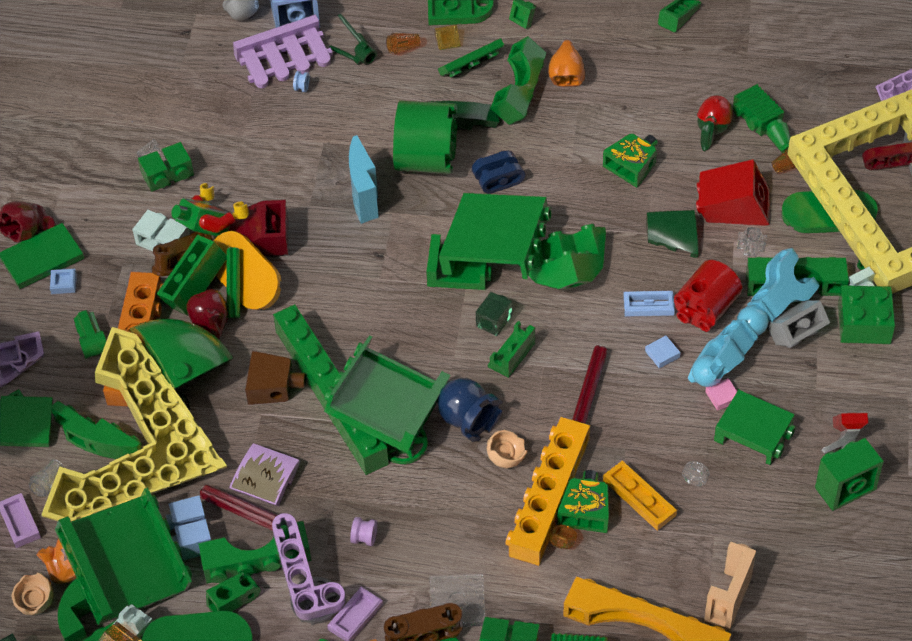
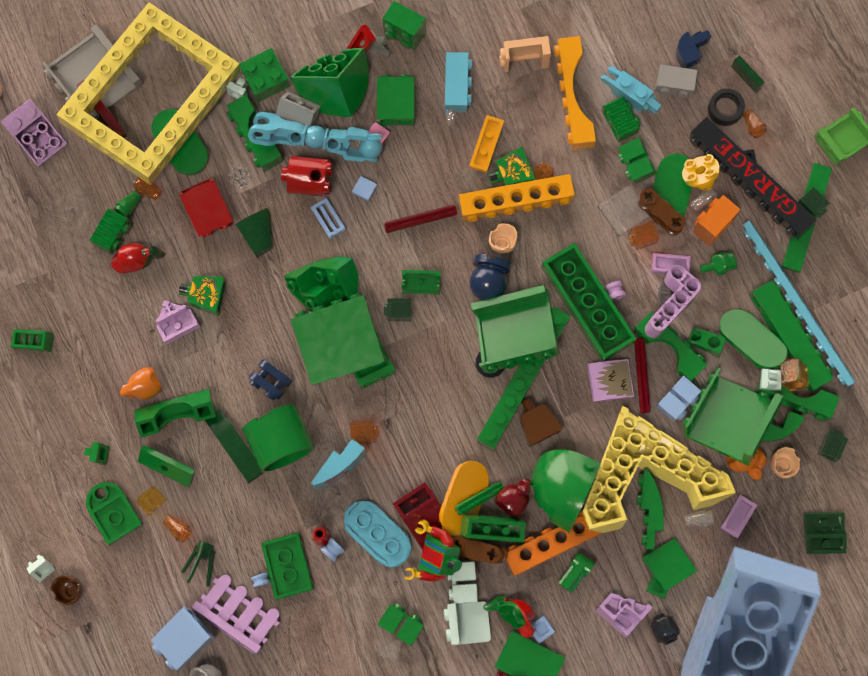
camera: 120 degrees left, 25 degrees up
(97, 263) = (515, 612): none -> green hair
(120, 216) = (467, 623): none -> light aqua bracket
(283, 146) = (332, 550): none -> light blue wheel
(290, 184) = (377, 533): none -> medium azure tile
(298, 110) = (287, 566): none -> green tile
(305, 142) = (324, 539): none -> red cone
(368, 490) = (588, 302): none -> green brick
(382, 222) = (363, 432): none -> clear orange brick
(408, 595) = (643, 236): none -> clear orange brick
(618, 123) = (175, 322): none -> lavender slope
(741, 502) = (457, 81): none -> medium azure brick
(813, 374) = (335, 82): none -> green brick

